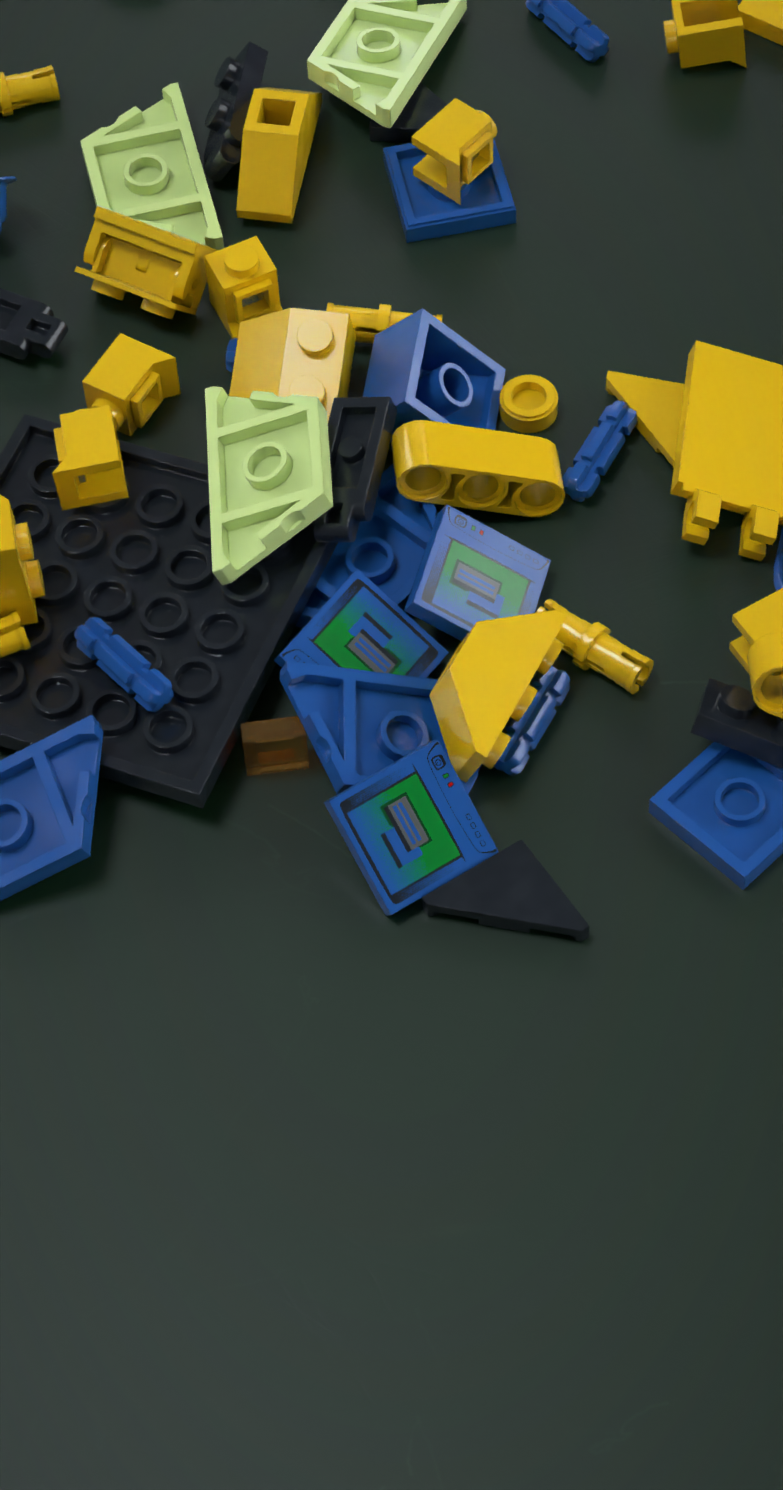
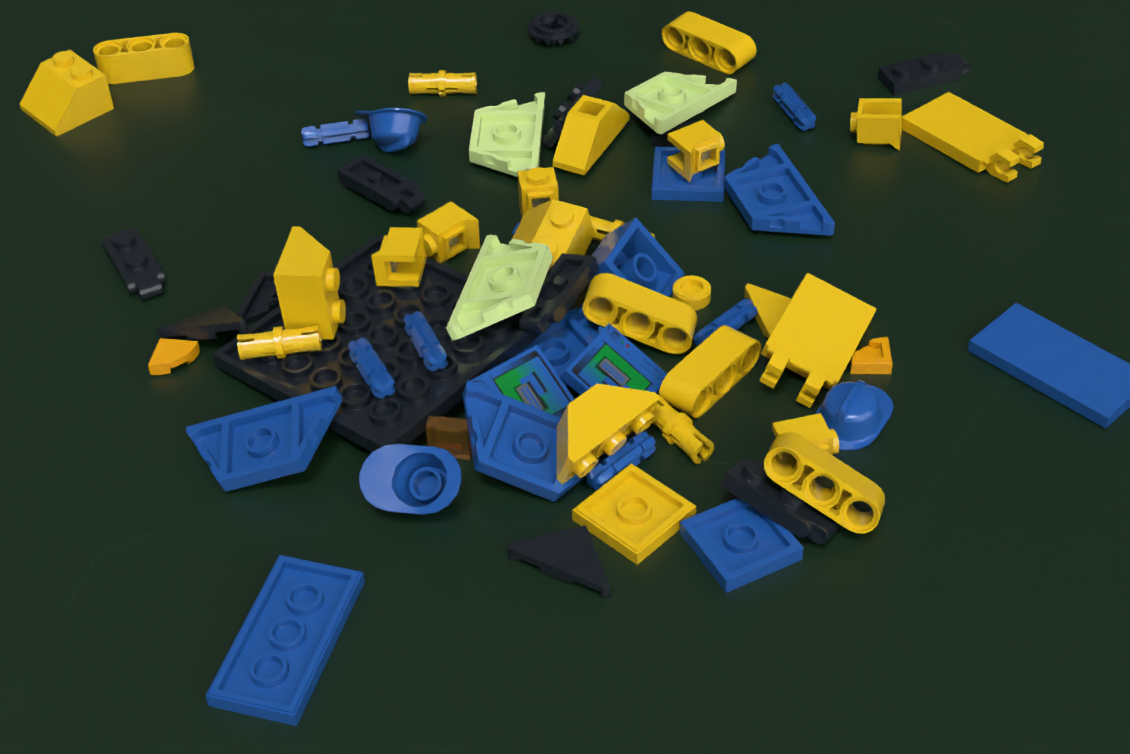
camera: 15 degrees right, 15 degrees down
(145, 262) = (483, 172): yellow hinge -> none
(169, 1125) = (286, 640): none -> blue tile
(185, 598) = (425, 341): none -> blue axle
(255, 835) = (410, 479): none -> blue piece
(411, 827) = (513, 498): blue tile -> none
(577, 799) = (633, 513): none -> yellow tile
(597, 201) = (777, 197): none -> blue wing
(606, 538) = (710, 371): none -> yellow beam

